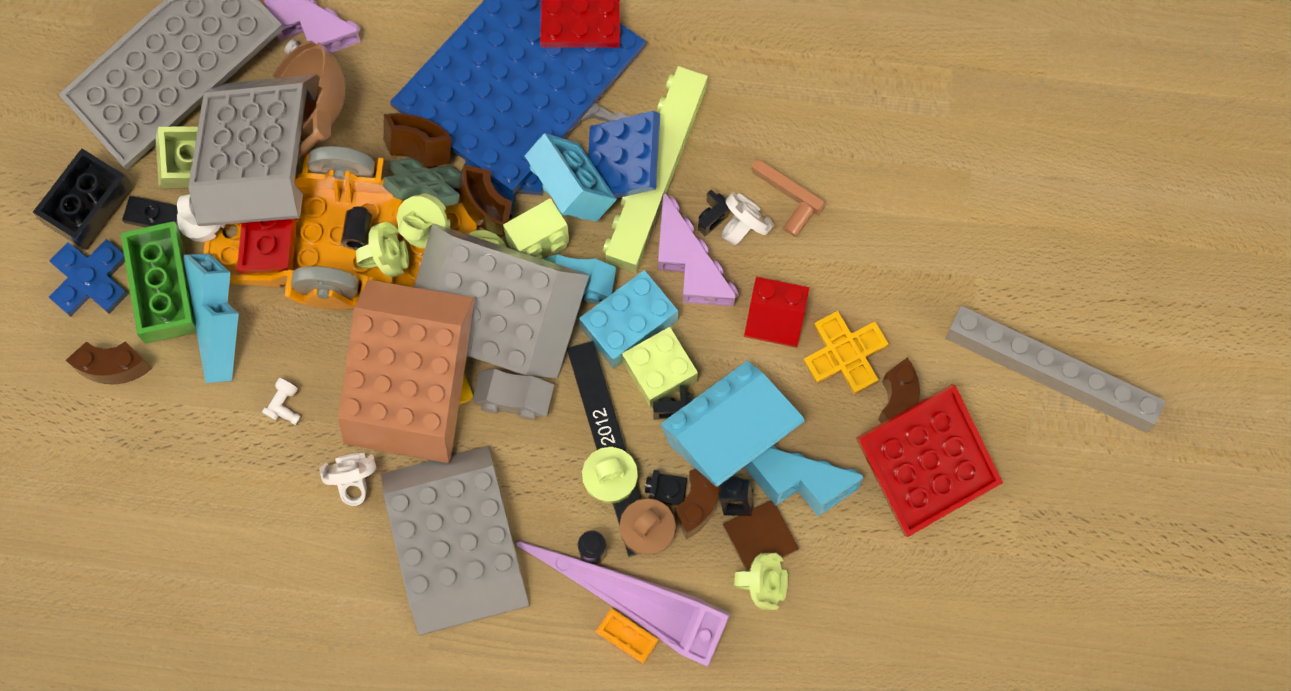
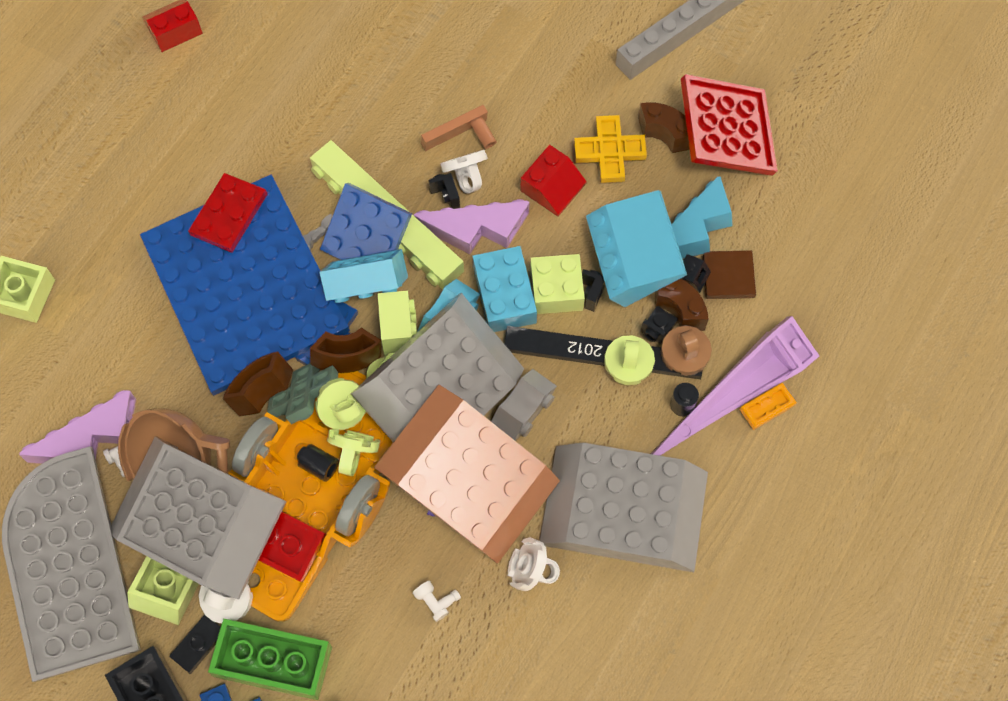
camera: 65 degrees left, 5 degrees down
(213, 316) = (336, 621): medium azure slope -> none
(765, 581) = (771, 281): yellowish green tile -> none

